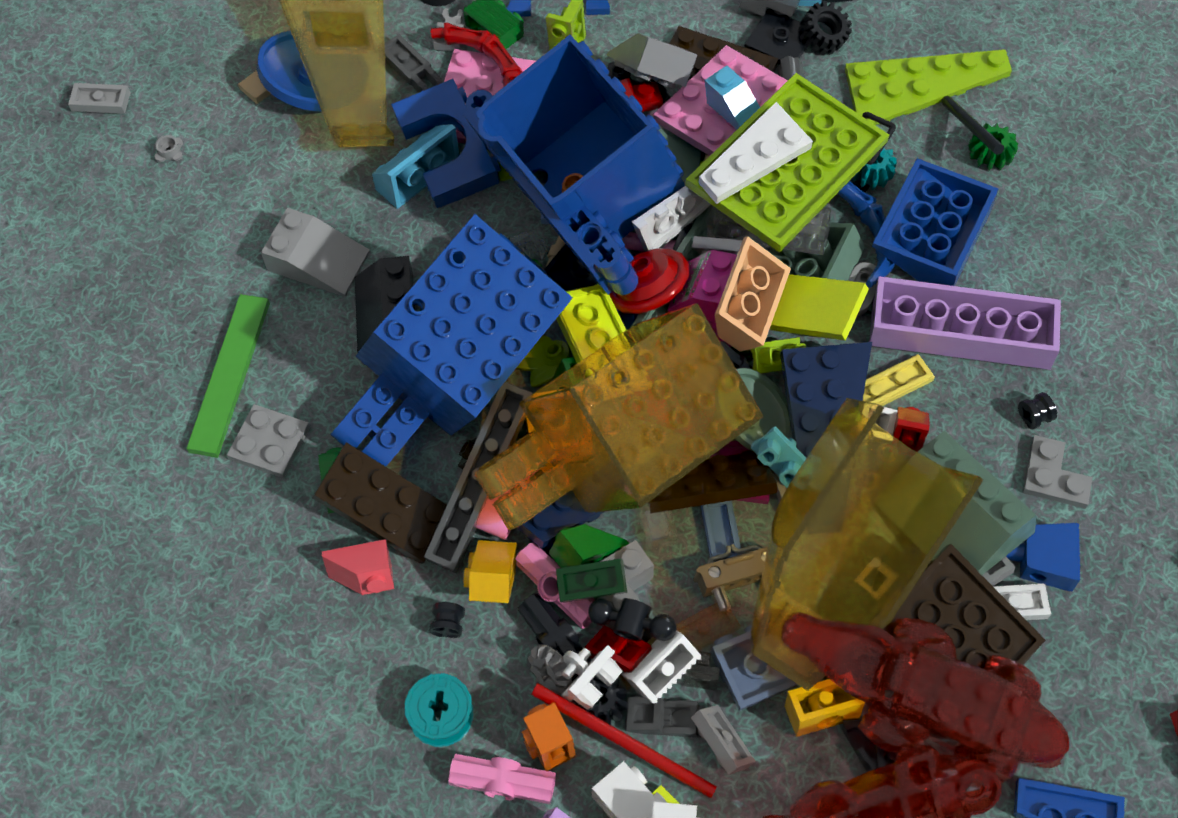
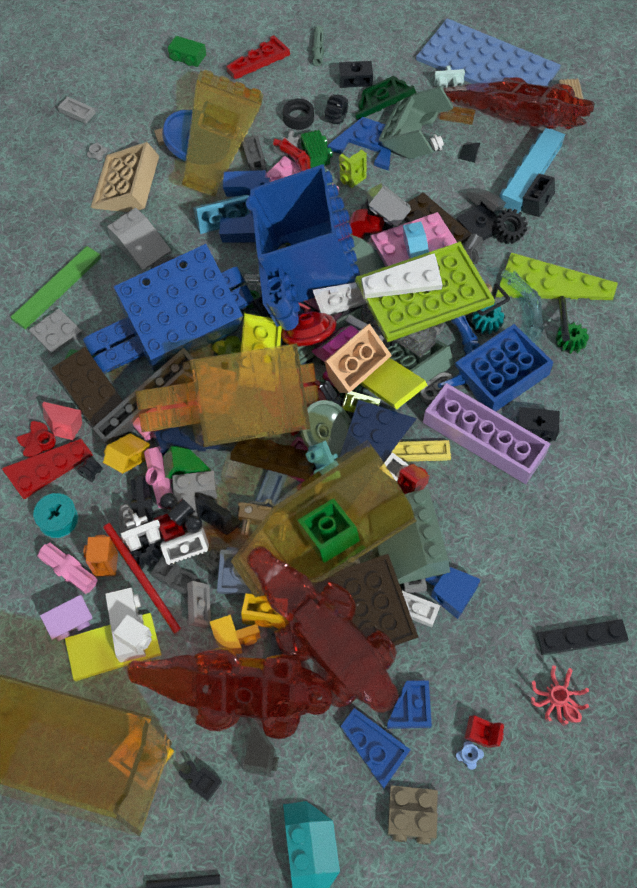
camera: 25 degrees right, 0 degrees up
(240, 172) = (126, 179): none -> tan slope
(334, 615) = (34, 440): none -> red plate
(373, 653) = (40, 470): none -> red wing
(591, 580) = (171, 481): dark green plate -> none
(675, 600) = (216, 515): none -> black bracket
(792, 766) = (231, 639): none -> yellow brick
(851, 549) = (328, 530): none -> green brick
(917, 118) = (533, 302): none -> clear light blue animal
(1022, 276) = (545, 419): none -> black brick
(1037, 410) = (500, 504): black wheel -> none
(1049, 481) = (483, 546): light grey plate -> none
(1092, 738) = (412, 707): none -> blue wing

